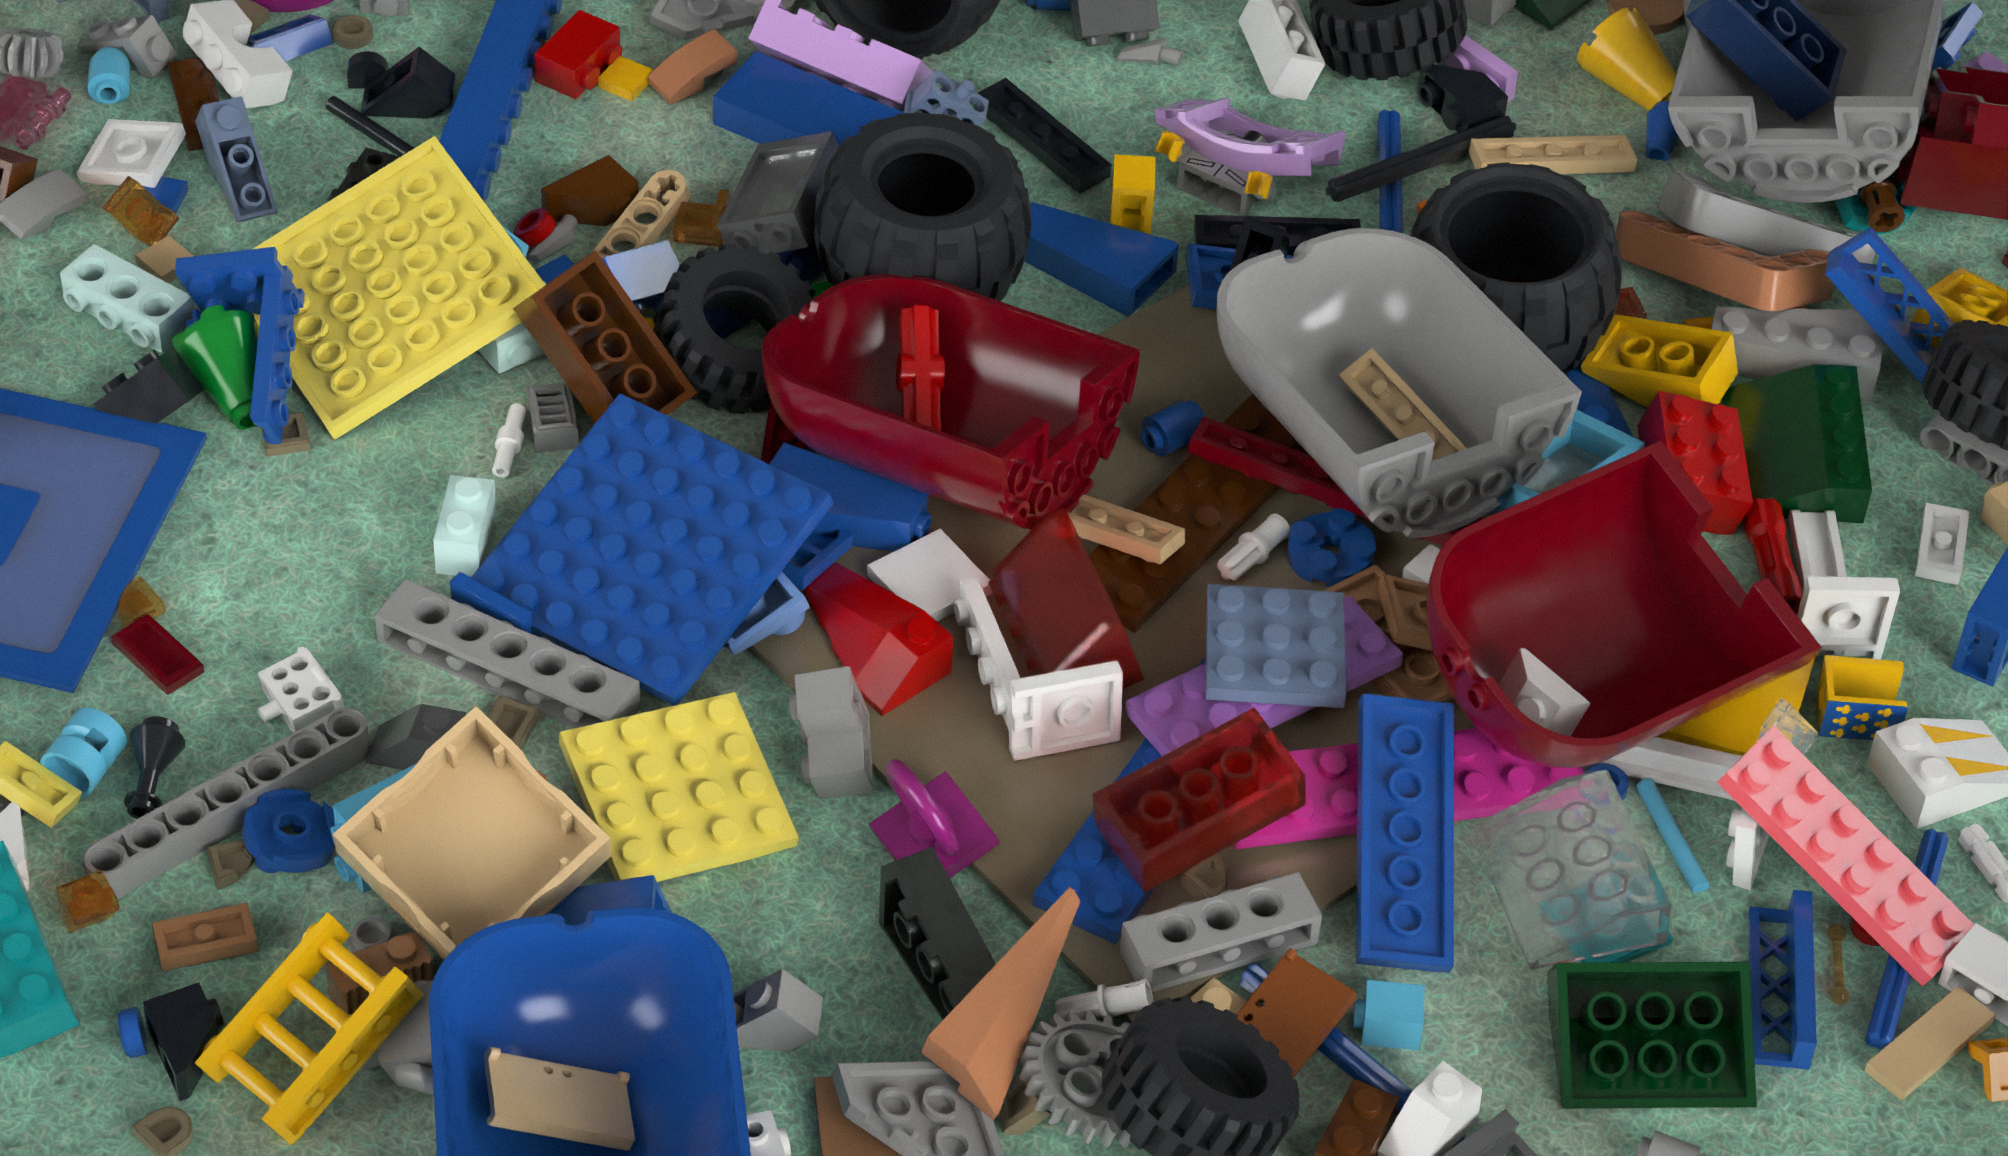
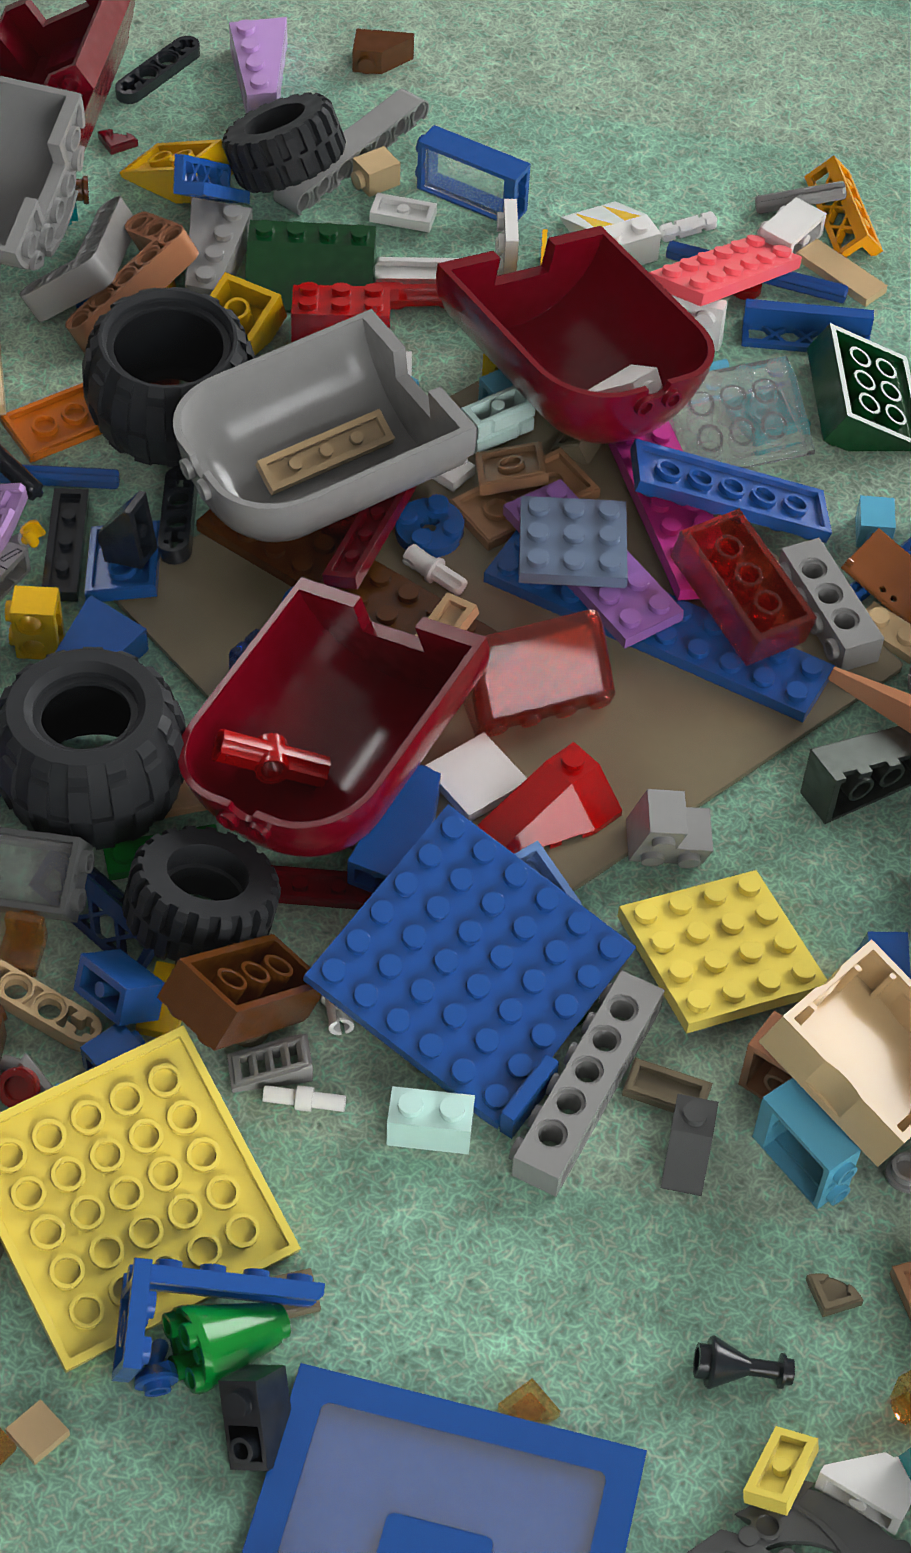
camera: 90 degrees left, 5 degrees up
(85, 749) = (736, 1423): medium azure wheel -> none
(126, 298) = (107, 1435): light aqua brick -> none
(157, 654) = (591, 1381): dark red tile -> none
(219, 804) = (784, 1313): light grey beam -> none
(284, 852) = (800, 1260): blue plate -> none
(298, 691) = (638, 1235): white piece -> none
(932, 817) = (748, 775): magenta tile -> none
(1044, 710) = (598, 718): white bracket -> none
(1108, 1000) = (895, 666): white axle -> none

